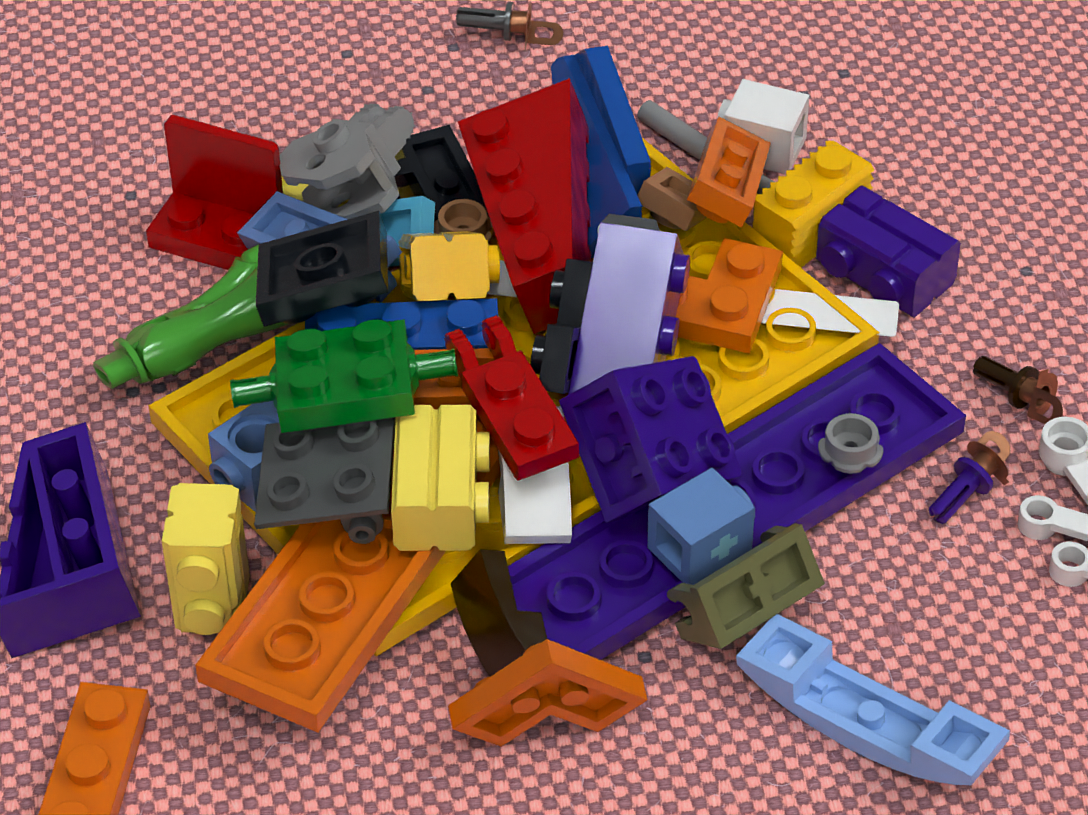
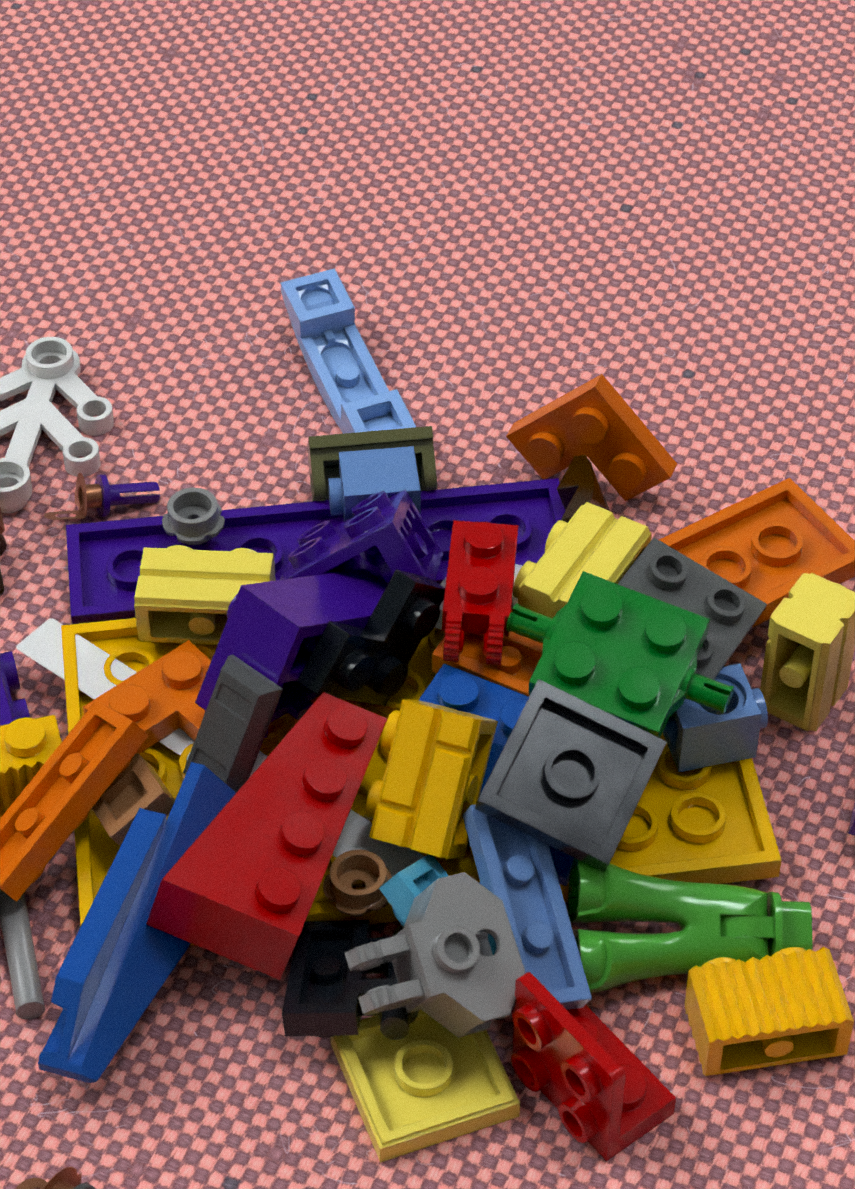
camera: 150 degrees left, 0 degrees up
(102, 301) = (767, 1010): none -> yellow brick
(770, 366) = (188, 591): none -> light yellow brick

